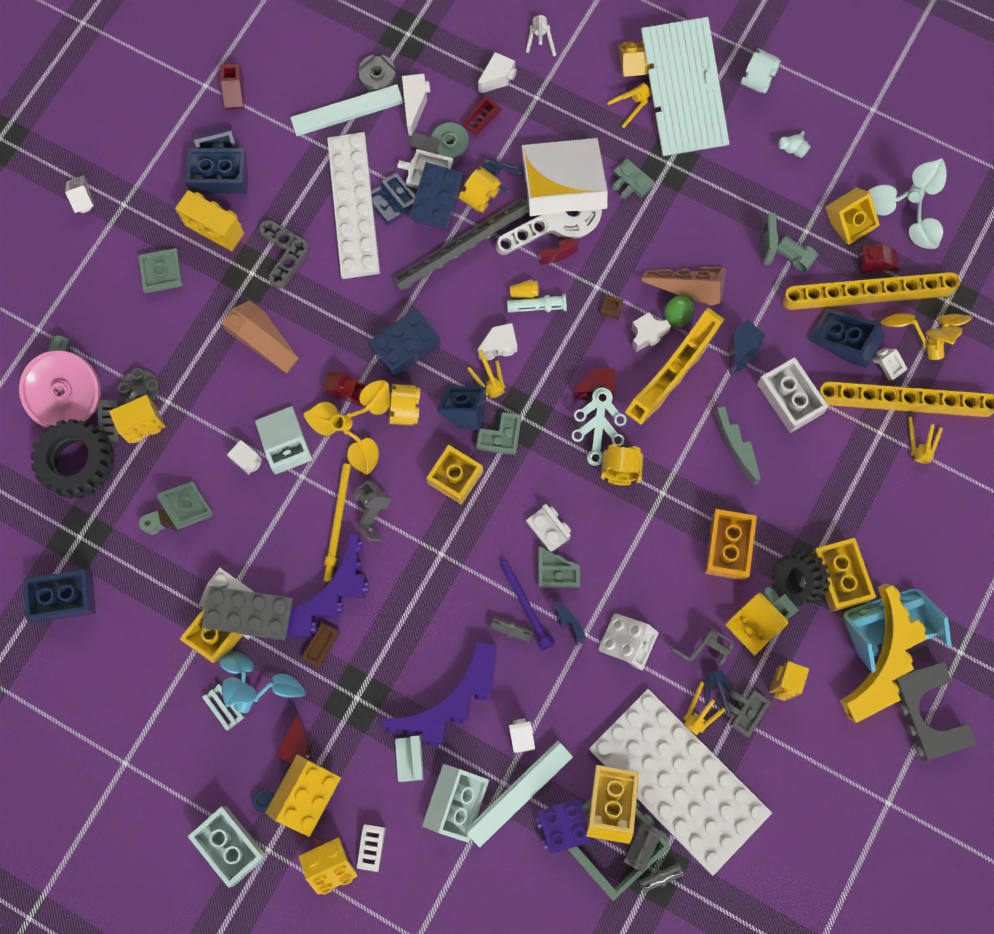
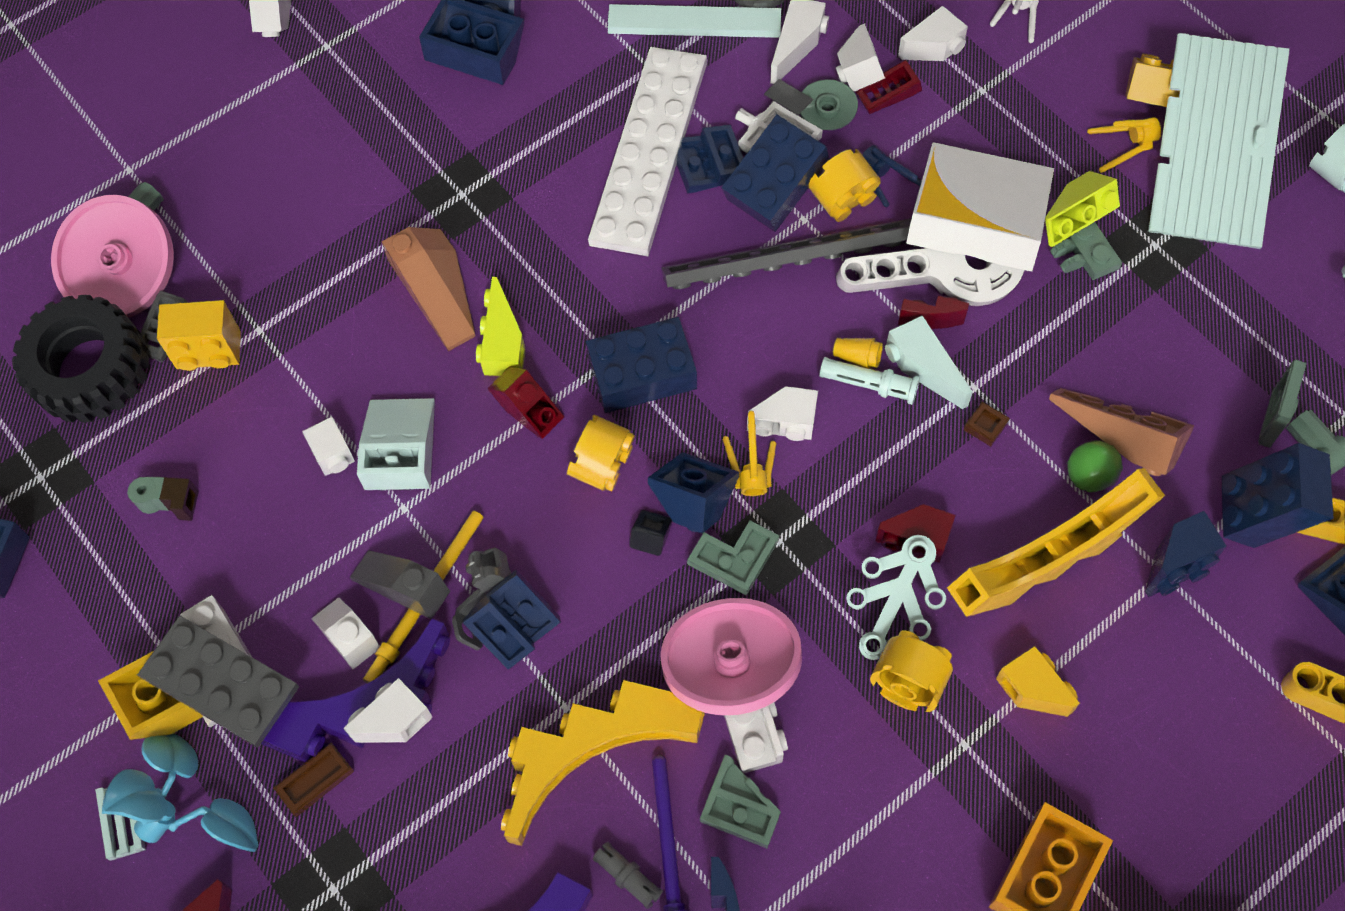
camera: 20 degrees right, 10 degrees down
(138, 384) = (233, 287): dark grey dish -> none
(160, 270) = (333, 146): sand green plate -> none
(184, 505) = (208, 484): sand green tile -> none
(210, 220) = (432, 99): yellow brick -> none
(289, 247) = (530, 178): dark grey beam -> none
(301, 558) = (346, 632): none -> white slope
(317, 355) = (502, 337): none -> neon yellow slope
(321, 519) = (402, 582): none -> dark grey slope
(326, 420) = (476, 434): yellow plant -> none
(352, 596) = (390, 717): none -> white slope
(393, 517) = (511, 619): none -> dark blue slope
(444, 585) = (547, 759): none -> yellow arch
(448, 436) = (650, 532): none -> black slope
(455, 474) = (636, 588): yellow brick -> none
(458, 105) = (859, 61): none -> white slope
(522, 492) = (731, 656): none -> bright pink dish
(564, 281) = (922, 355): none -> light aqua slope
(619, 156) = (1080, 205): none -> neon yellow slope
(648, 331) = (1032, 479): white brick -> none
(689, 447) = (1036, 686): none -> yellow slope
(740, 451) = (1121, 724): sand green slope -> none
(782, 295) = (1277, 496): none -> dark blue brick
(792, 395) = (1241, 663): white brick -> none

